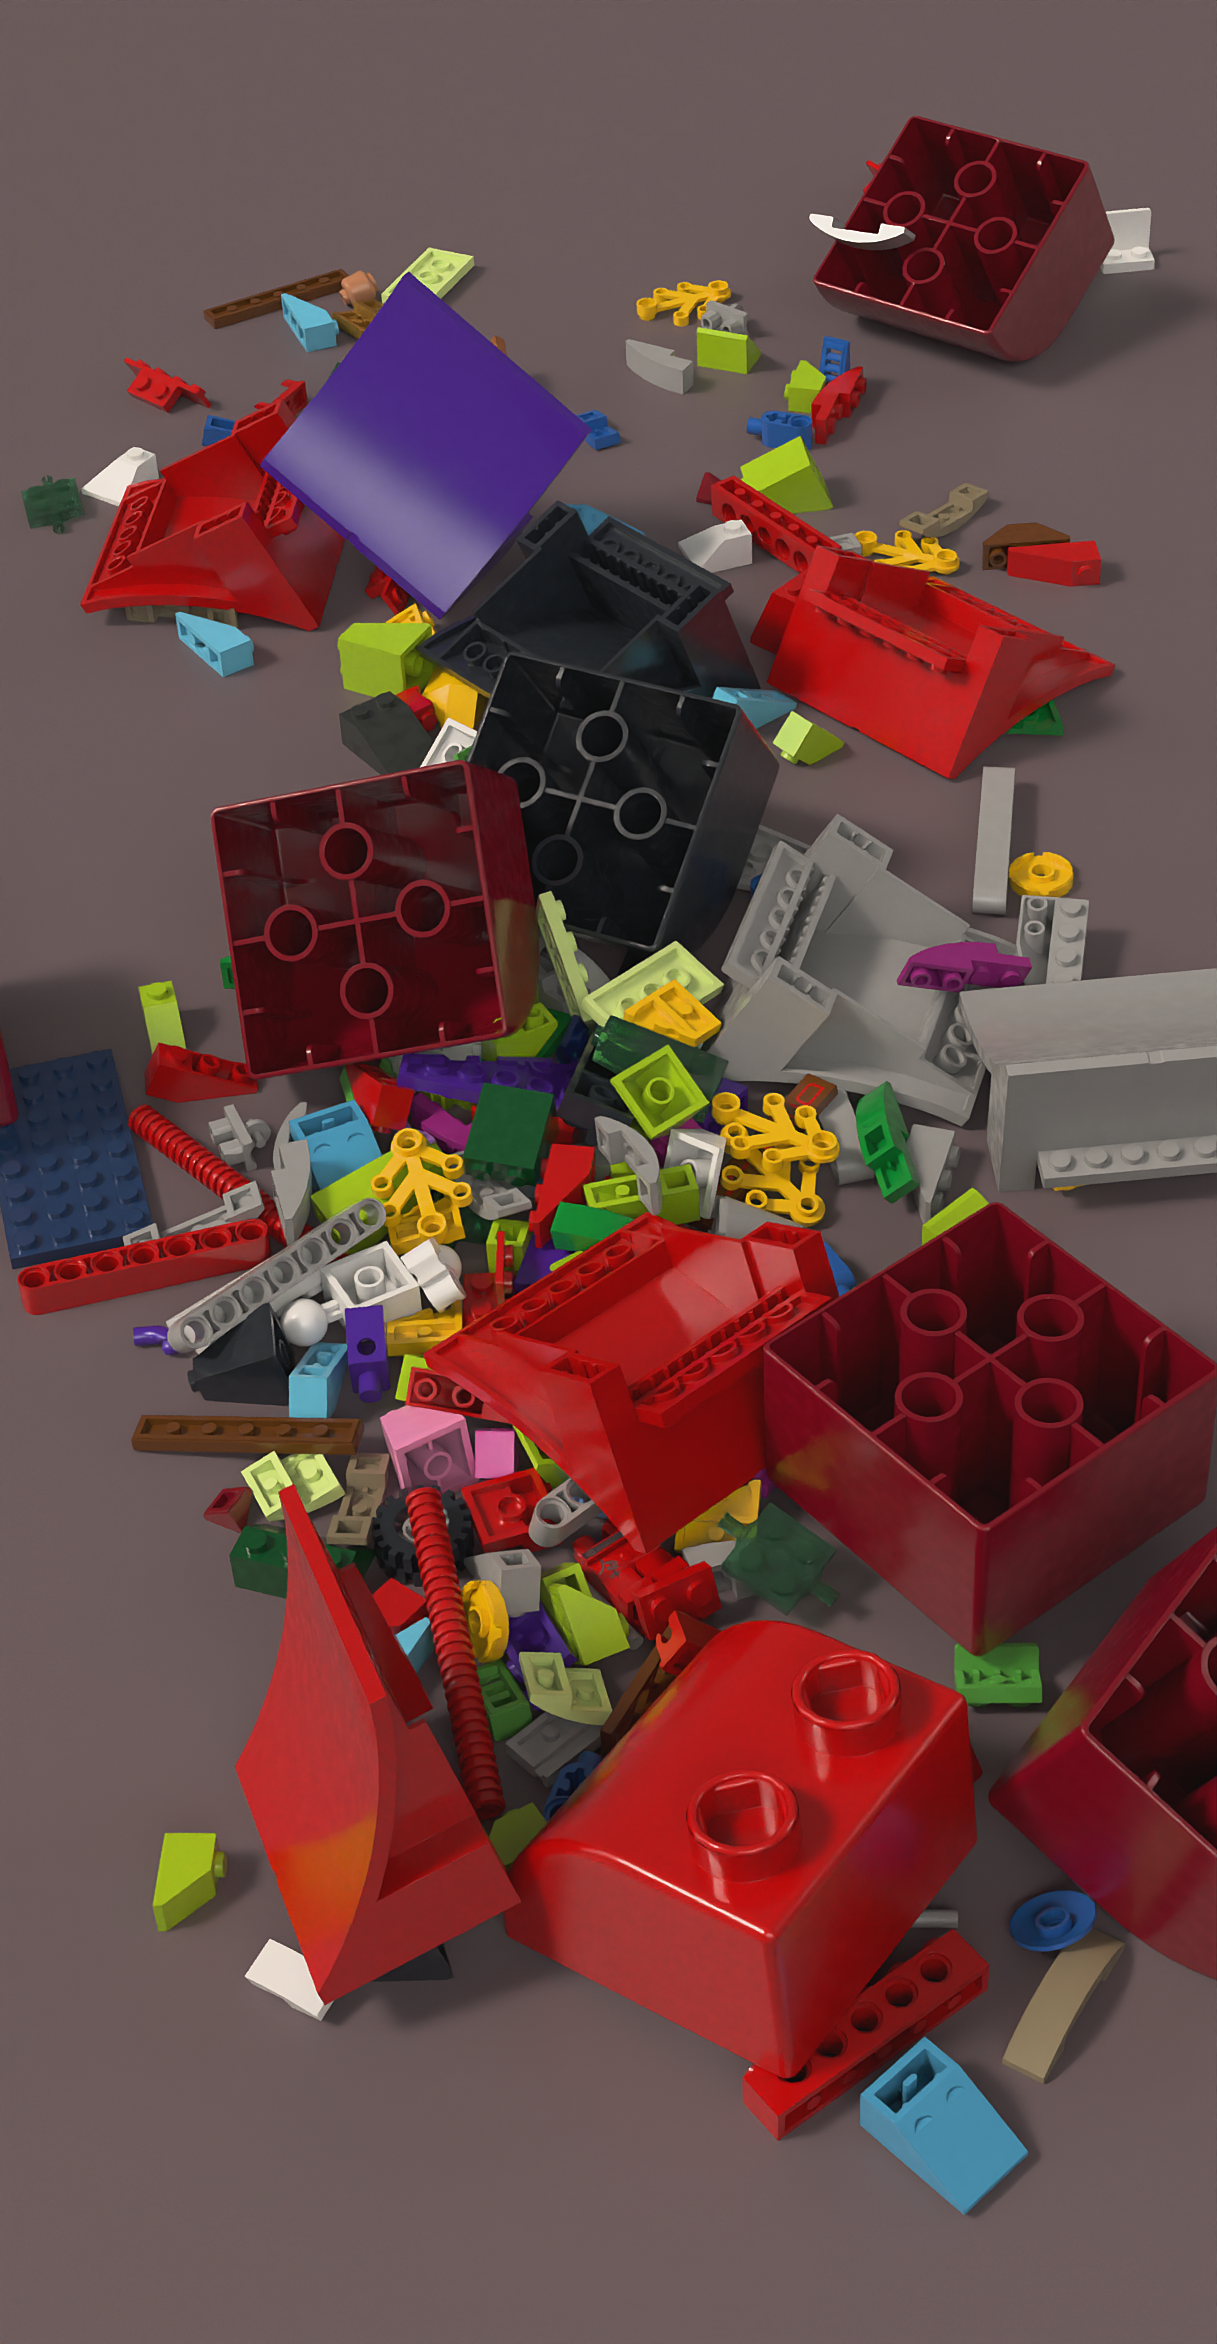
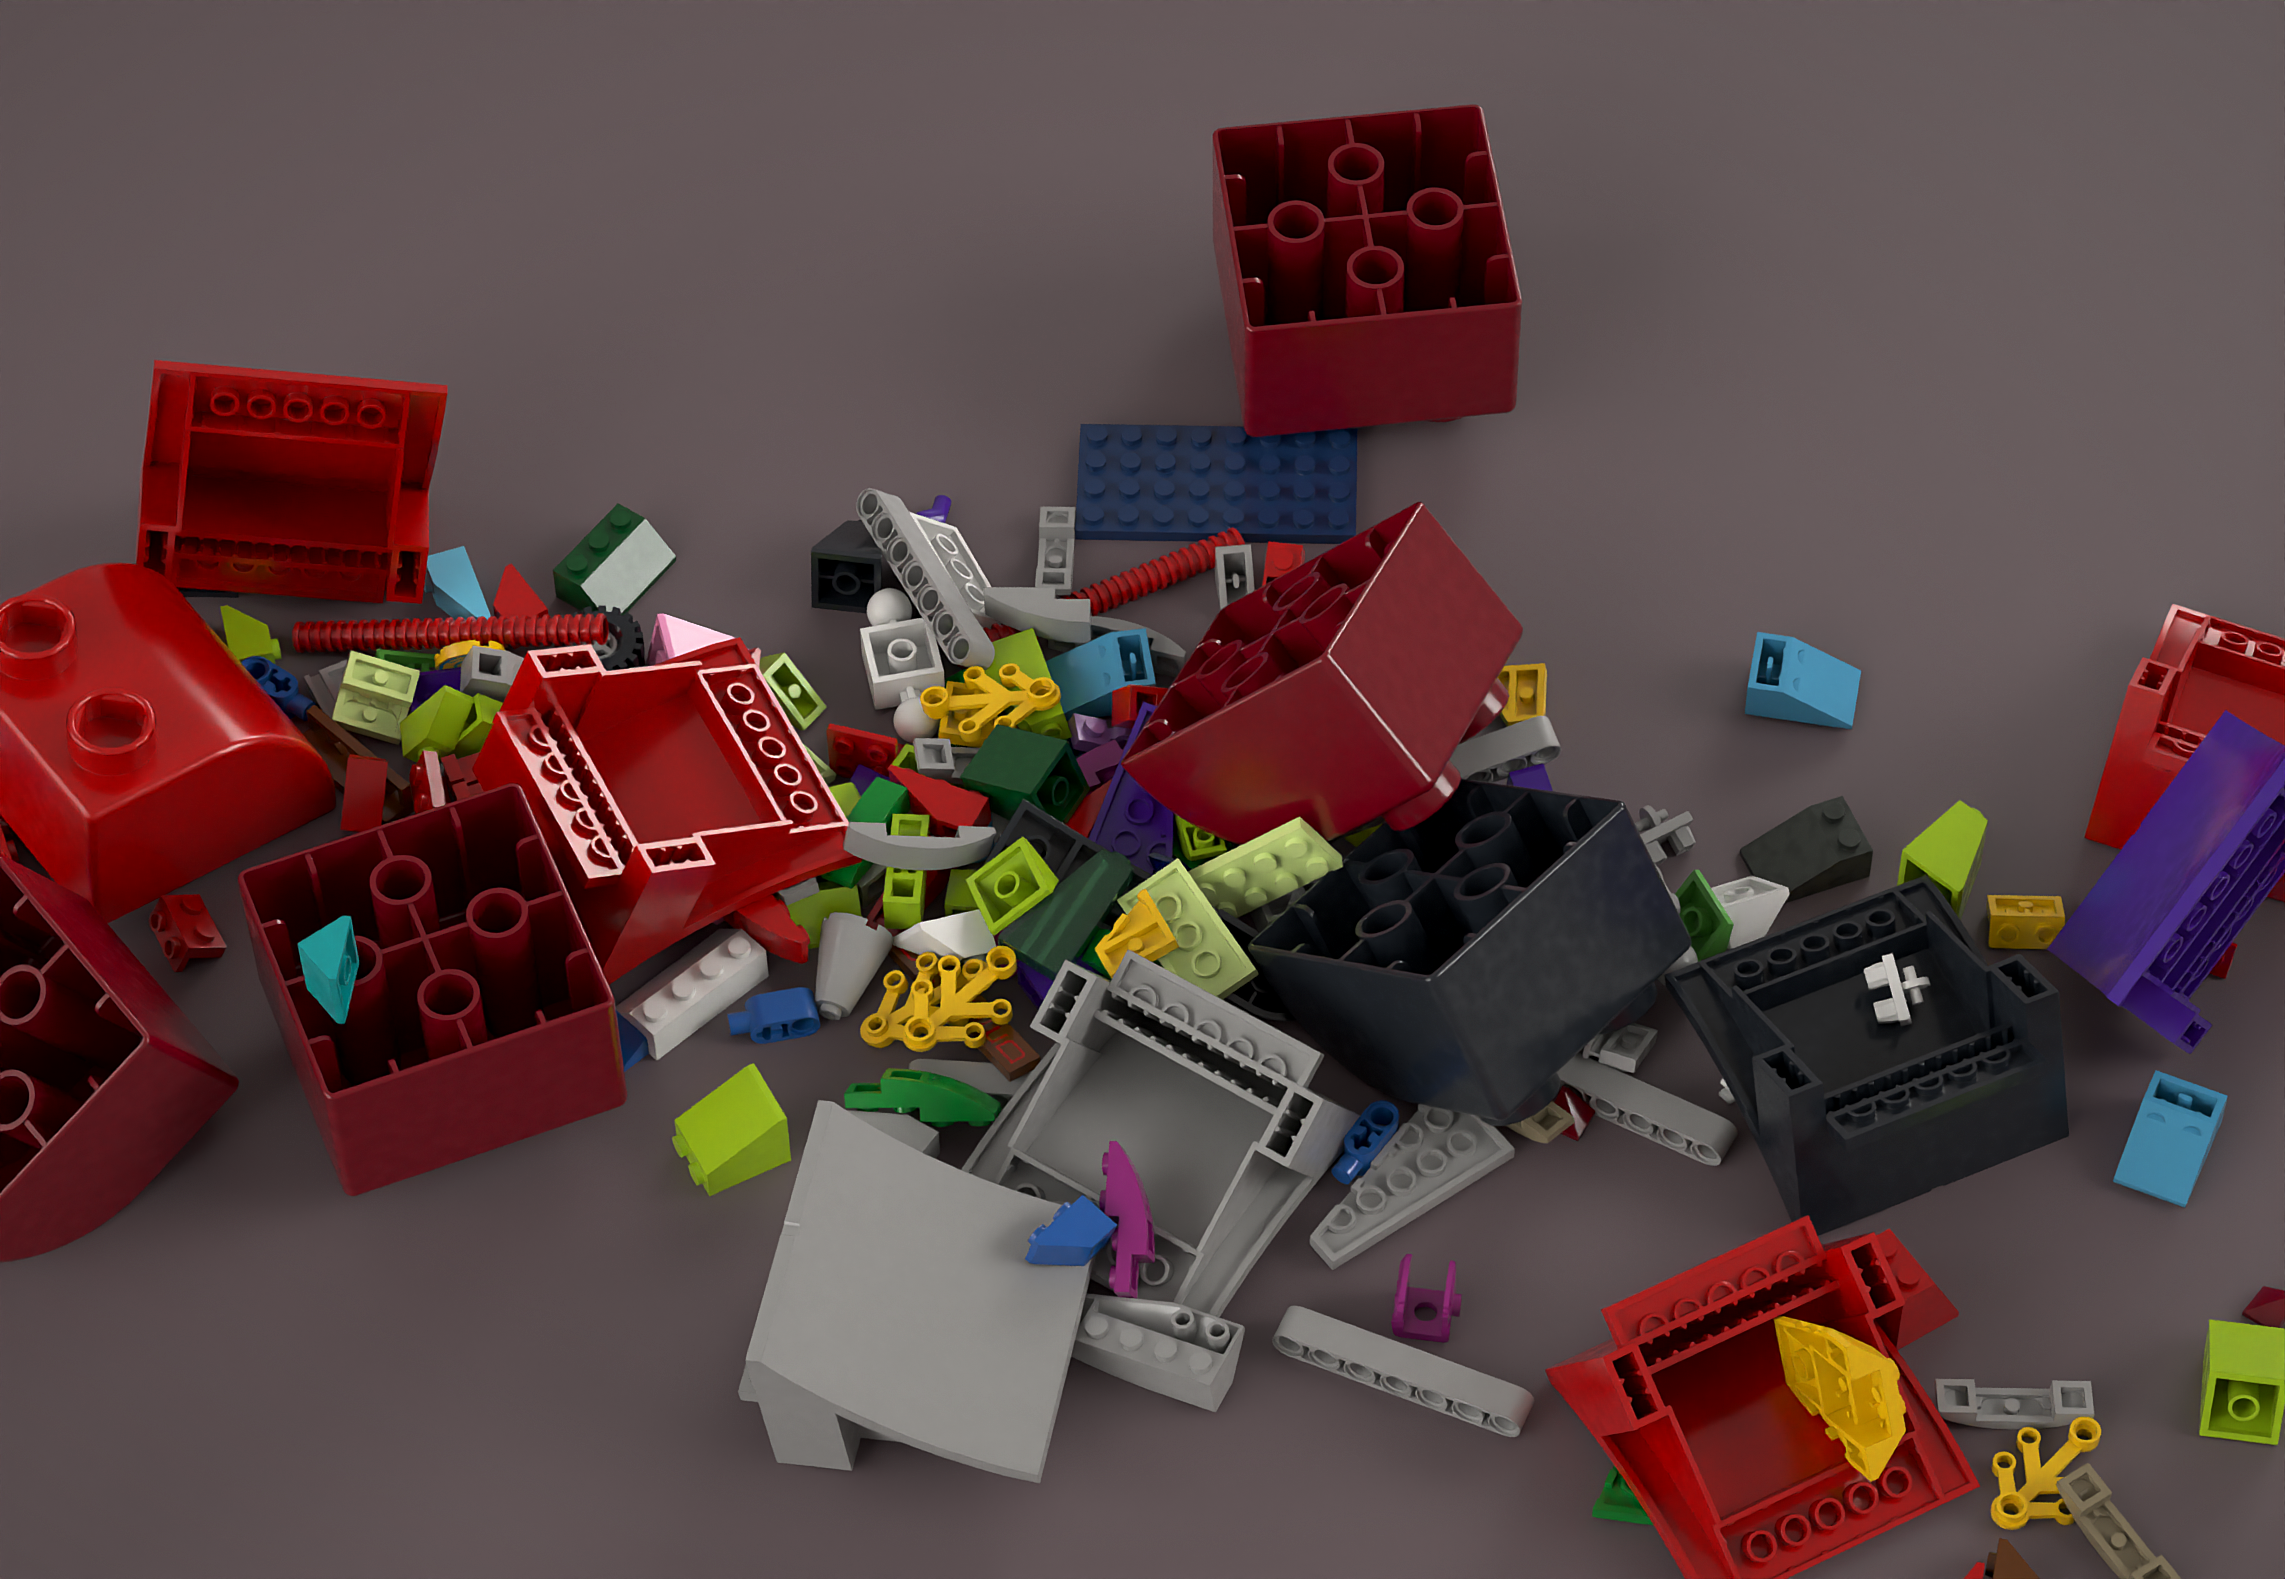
camera: 105 degrees right, 10 degrees up
(144, 1266) = (1023, 501): red beam -> none
(191, 1106) = (1233, 573): none -> light grey slope
(214, 776) = (1800, 683): none -> dark azure slope
(216, 643) = (2062, 728): medium azure slope -> none
(230, 1508) = (702, 533): dark red slope -> none
(238, 1139) = (1173, 611): light grey hips -> none
(248, 1434) = (773, 554): reddish brown tile -> none
(308, 1473) = (707, 578): yellowish green slope -> none
(317, 1381) = (816, 611): medium azure slope -> none
(365, 1490) = (611, 589): dark tan slope -> none
(367, 1363) = (824, 646): dark purple torso -> none
(420, 706) = (1853, 882): red brick -> none
(423, 1330) = (847, 701): yellow wing -> none
(433, 1276) = (874, 705): white leg -> none
(548, 625) = (1886, 974): none -> white hips
(719, 546) = (2127, 1275): white slope -> none
(757, 704) = (1740, 1195): medium azure slope -> none
(769, 523) = (2121, 1329): red brick -> none
(805, 740) = (1657, 1241): lime slope -> none
(929, 826) = (1409, 1299): none -> magenta piece
(933, 576) = (1848, 1387): none -> yellow wedge
(1001, 1676) = (244, 1006): bright green bracket -> none
(1005, 982) = (1072, 1237): none -> blue slope
(1057, 873) = (1329, 1423): yellow tile -> none
(1091, 1371) = (331, 966): none -> teal slope

